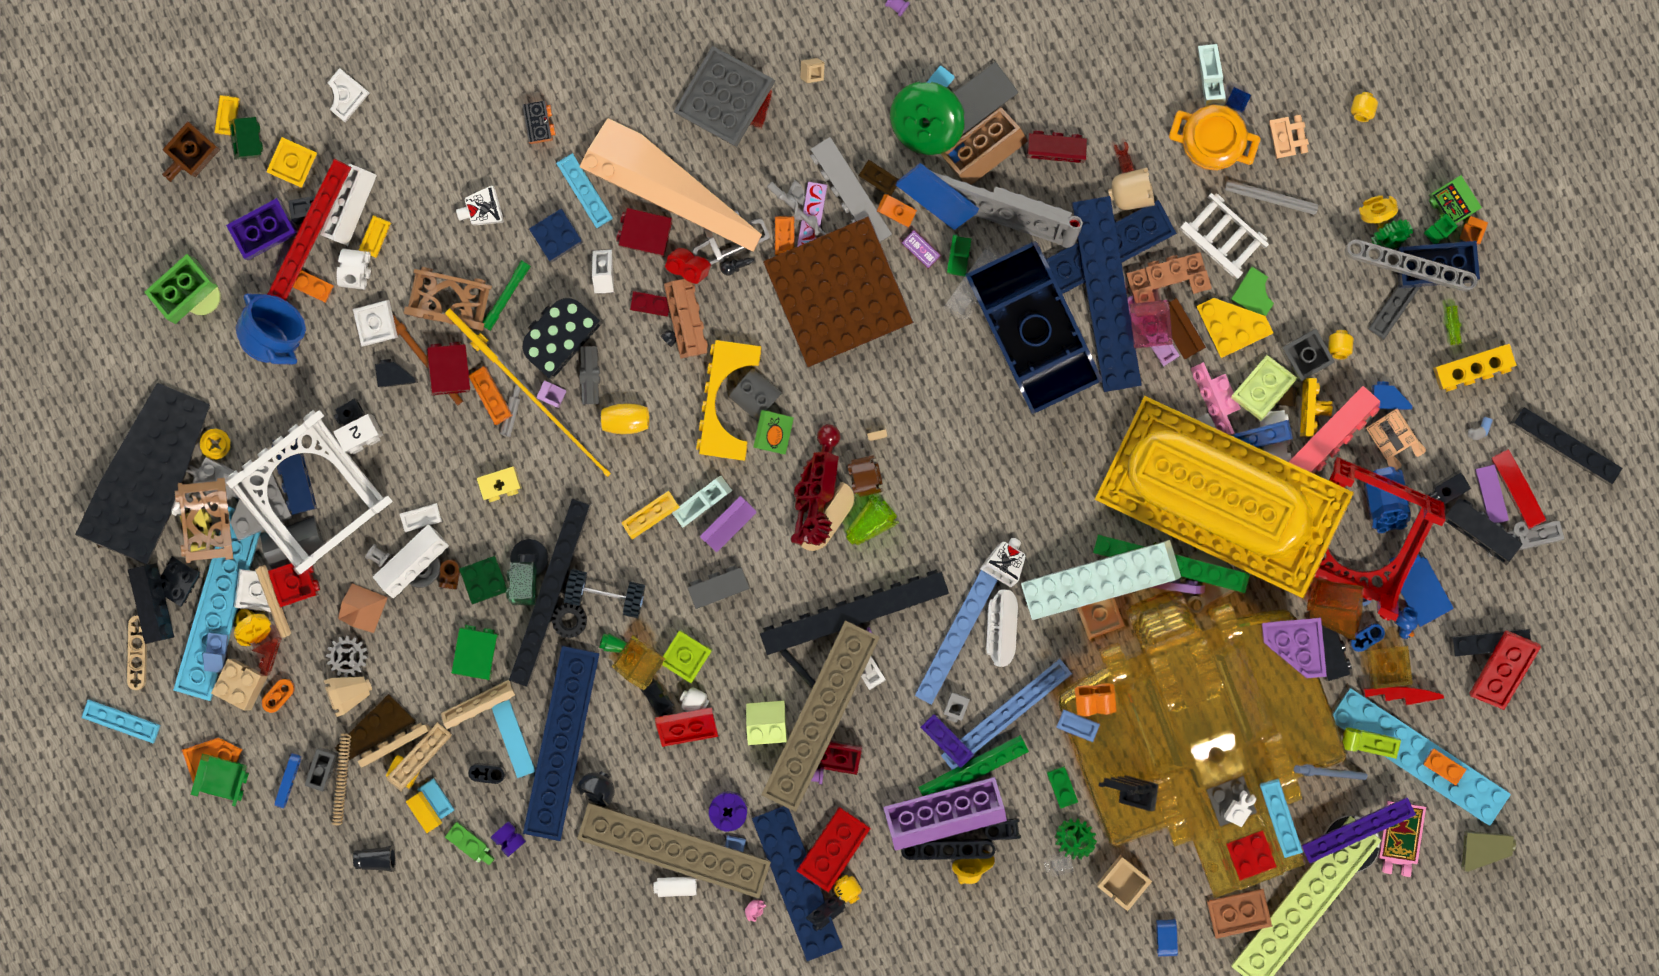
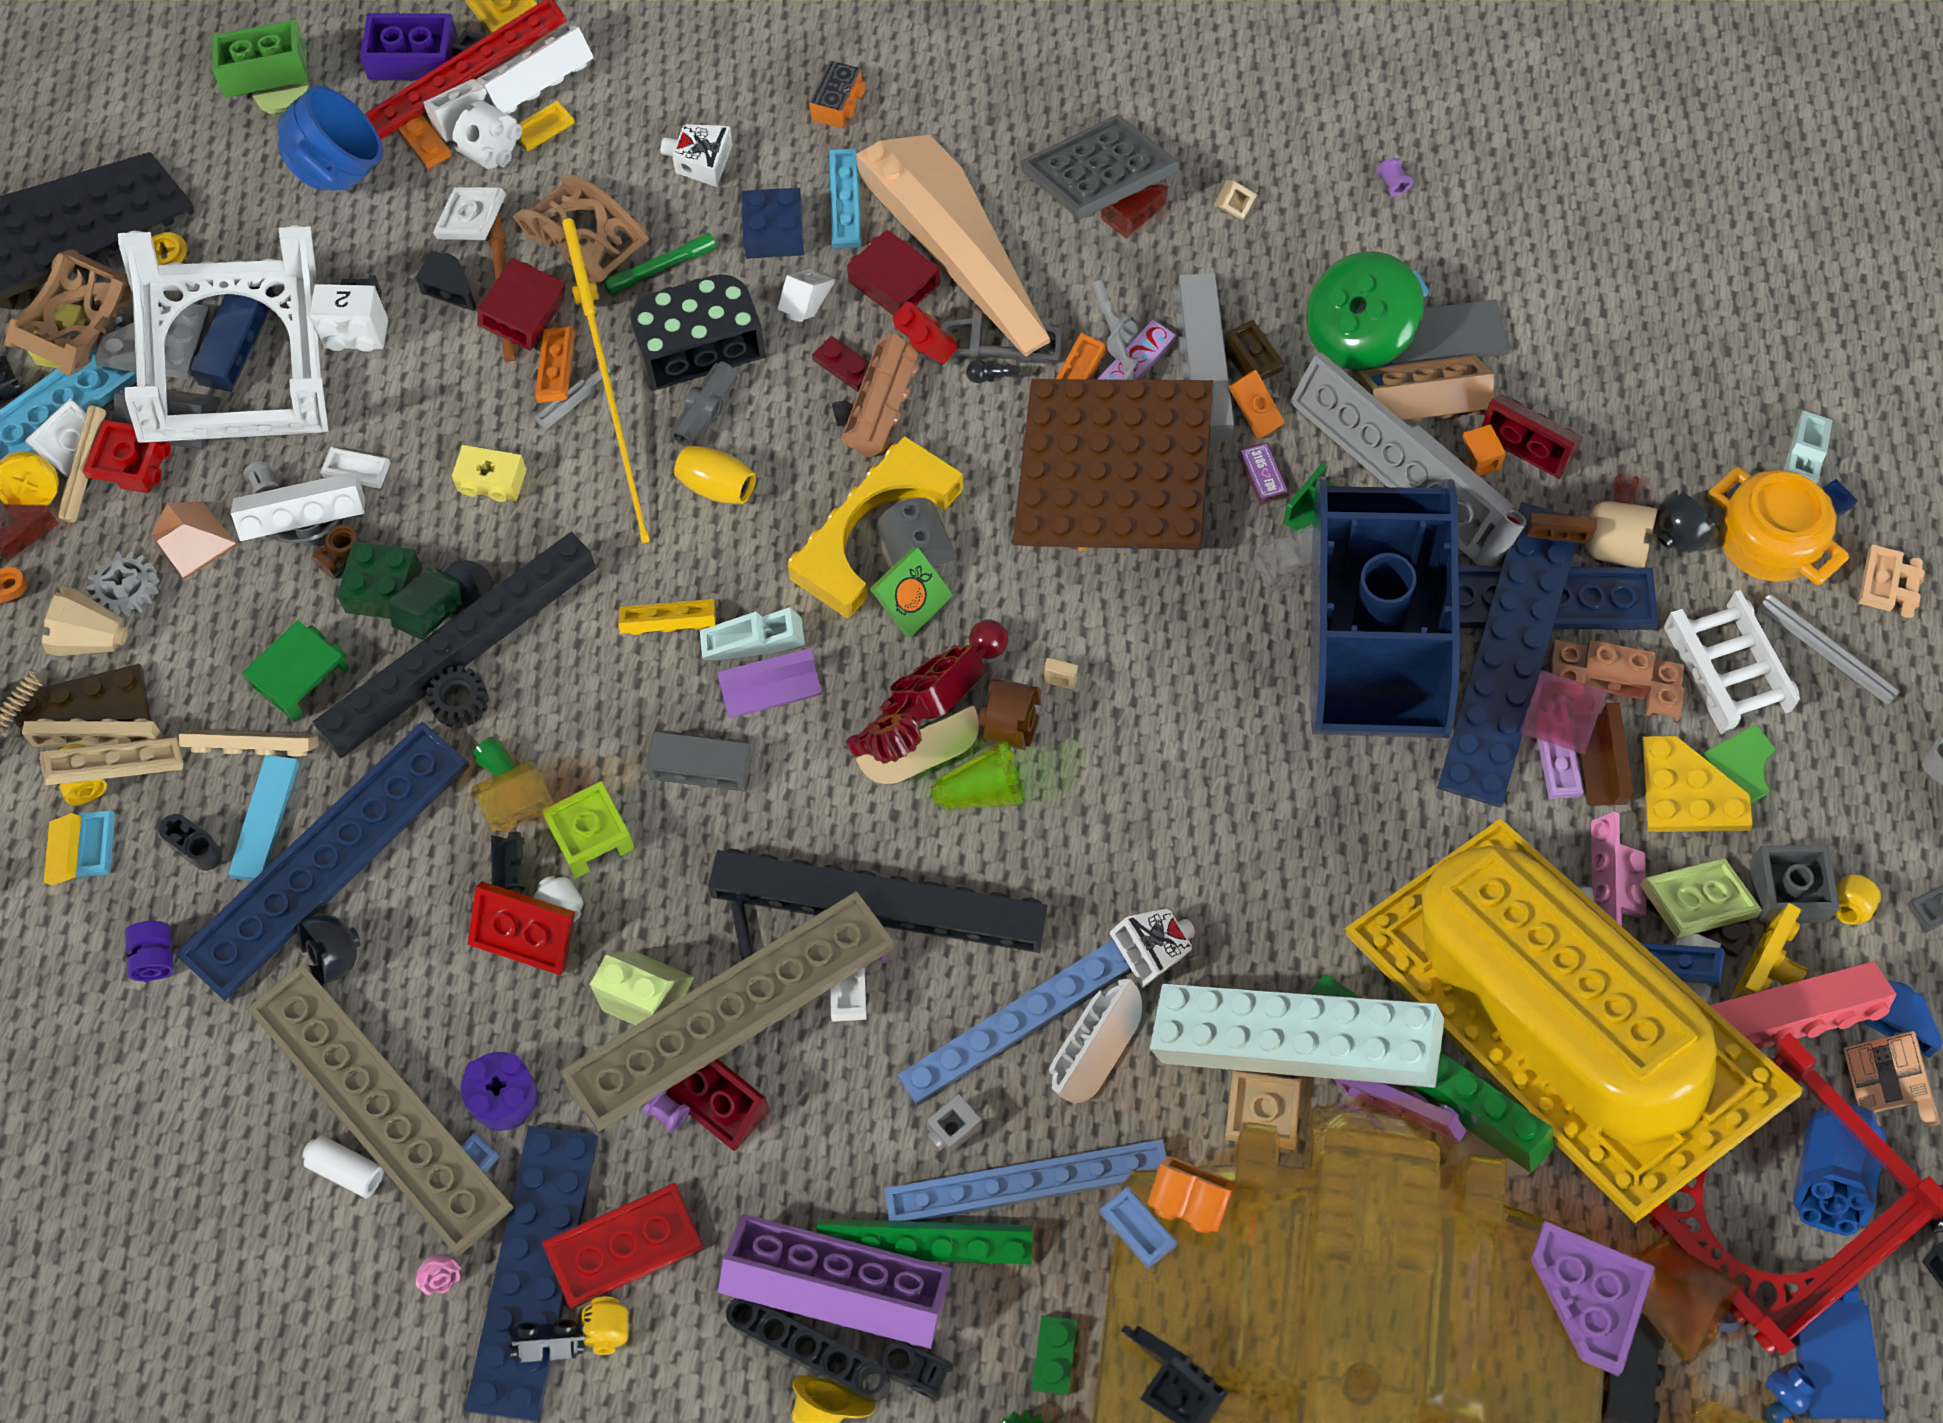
camera: 30 degrees right, 25 degrees down
(322, 259) = (447, 107): none -> white slope
(469, 843) = (91, 932): bright green hinge -> none
(551, 394) = (634, 401): lavender panel -> none
(576, 588) = (498, 652): black axle -> none
(937, 196) = (1326, 402): blue tile -> none
(947, 741) = (908, 1170): dark purple tile -> none
(1034, 172) = (1485, 450): none -> orange panel
(1101, 213) = (1560, 527): none -> reddish brown plate
(1164, 164) = (1683, 524): none -> black cylinder
(1365, 644) = (1710, 1389): blue beam -> none

